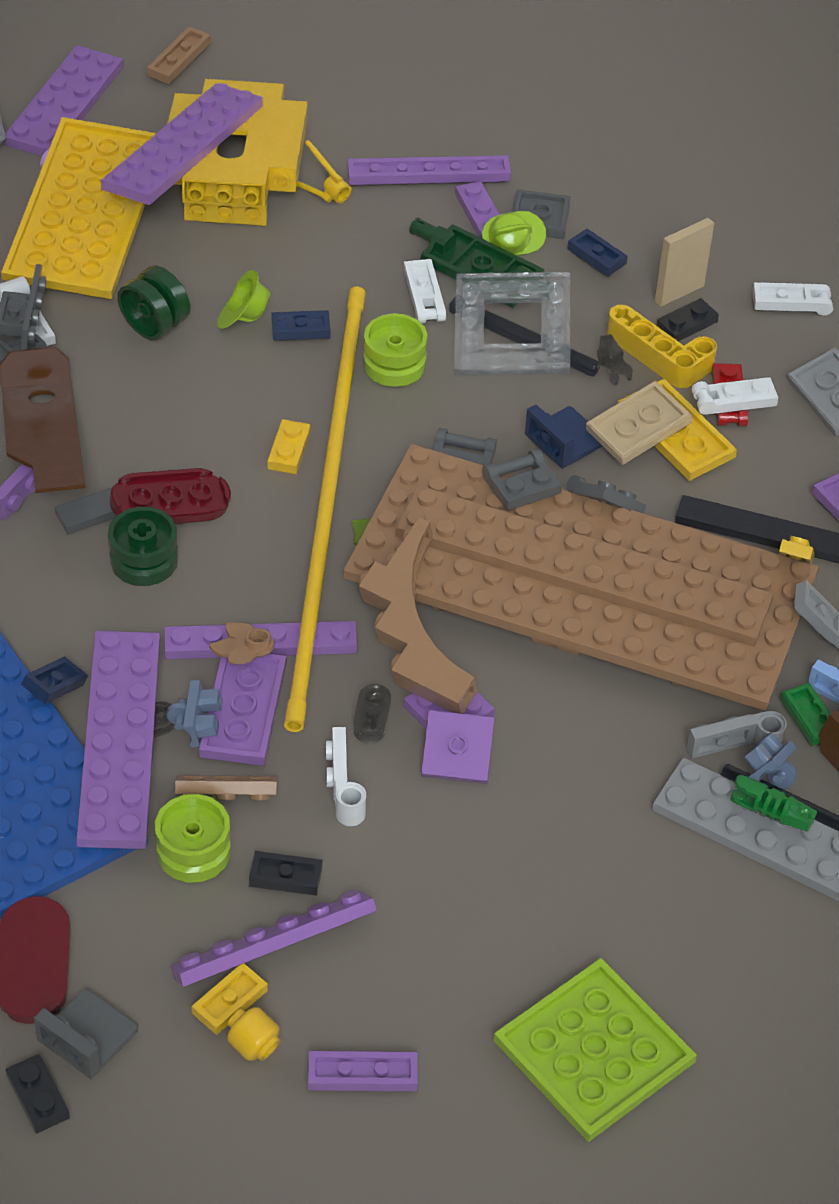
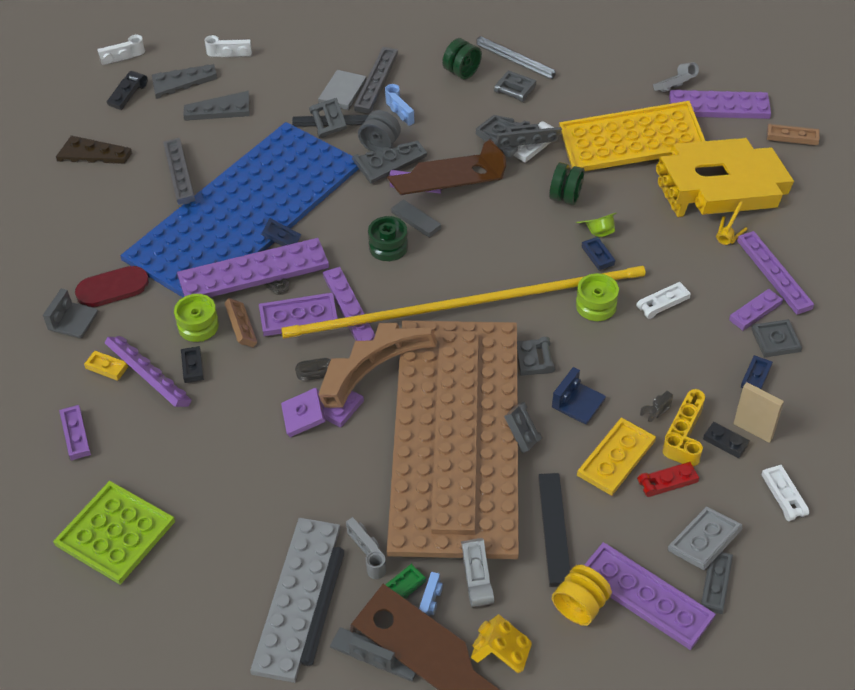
camera: 75 degrees right, 0 degrees up
(37, 1093) = (33, 314): black plate -> none
(180, 493) = (432, 240): dark red tile -> none
(182, 144) = (694, 148): medium lavender plate -> none
(191, 713) = (278, 292): sand blue hips -> none
(243, 643) = (333, 298): medium nougat plate -> none
(253, 1034) = (84, 380): yellow head -> none
(289, 446) = (501, 278): yellow plate -> none
(344, 792) = (262, 367): white plate -> none
(461, 252) = (704, 319): dark green plate -> none
(515, 232) = (744, 328): lime piece -> none
(523, 487) = (504, 382): dark grey plate -> none
(525, 336) = (655, 360): black axle -> none
(548, 357) = (639, 372): clear plate -> none
(638, 422) = (604, 431): tan tile -> none
(734, 395) = (658, 477): white plate -> none
(770, 759) = (337, 560): sand blue hips -> none
(772, 803) = (308, 574): green hinge -> none
(797, 549) = (522, 538): yellow plate -> none

